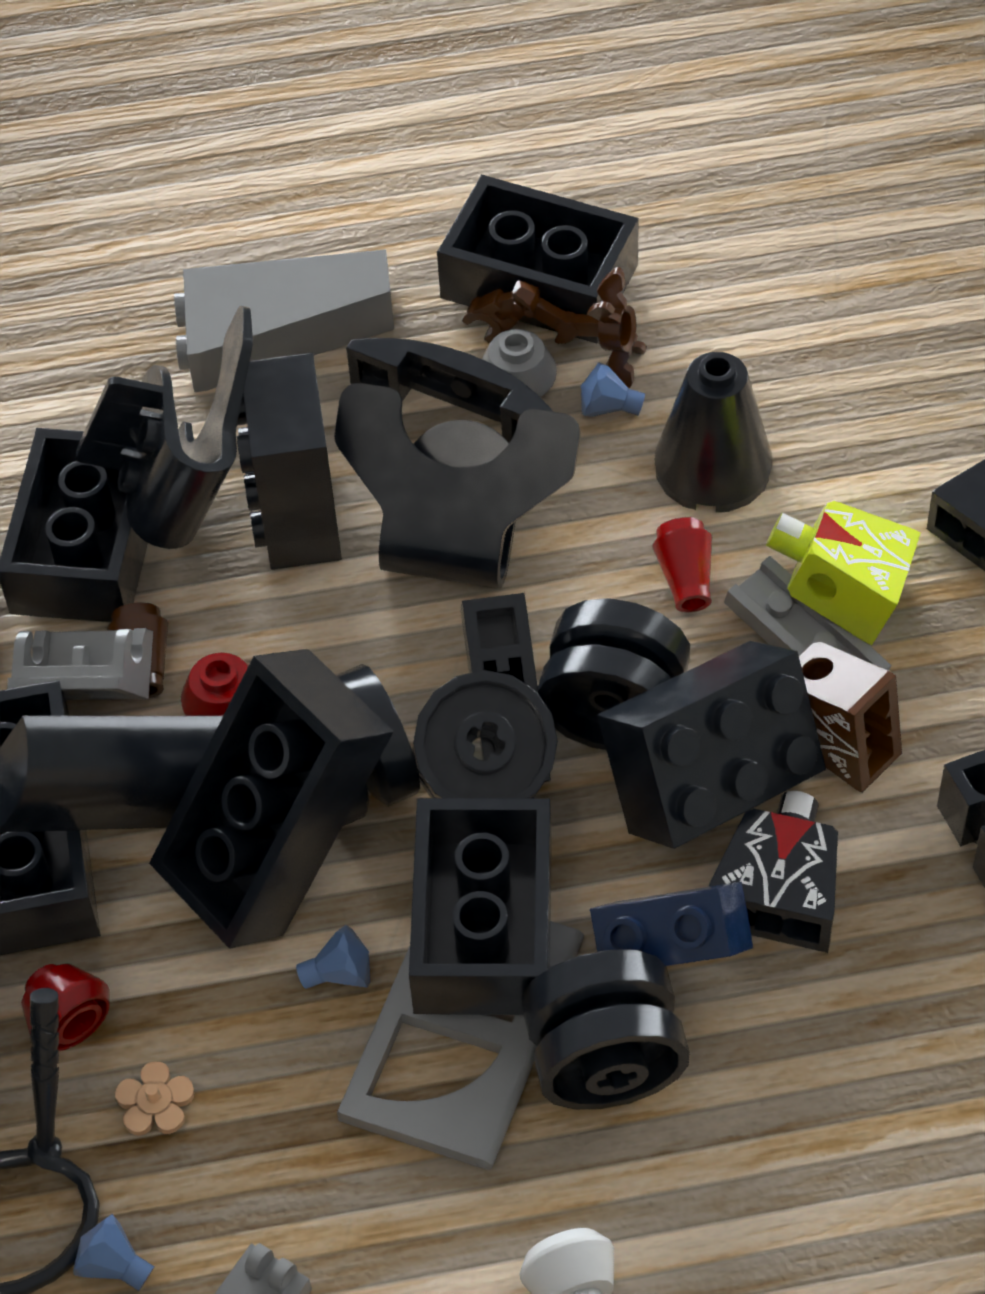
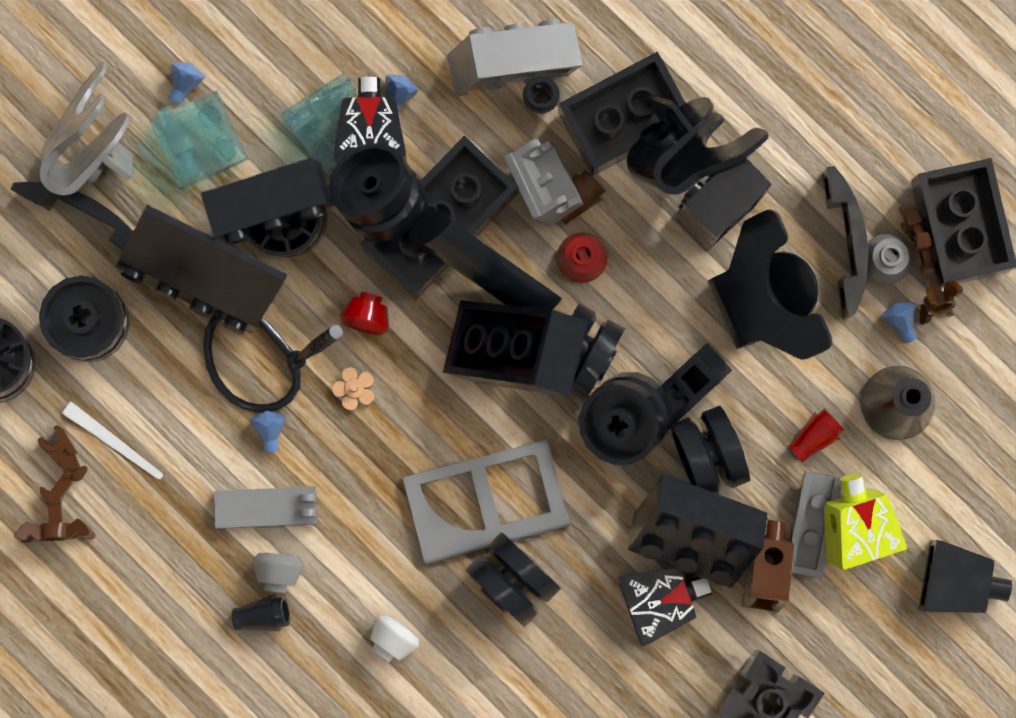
camera: 50 degrees right, 30 degrees up
(293, 307) = (834, 103): light grey slope -> none
(340, 961) = (476, 424): medium blue rock -> none
(479, 904) = (538, 478): black brick -> none
(677, 925) = (586, 575): dark blue brick -> none

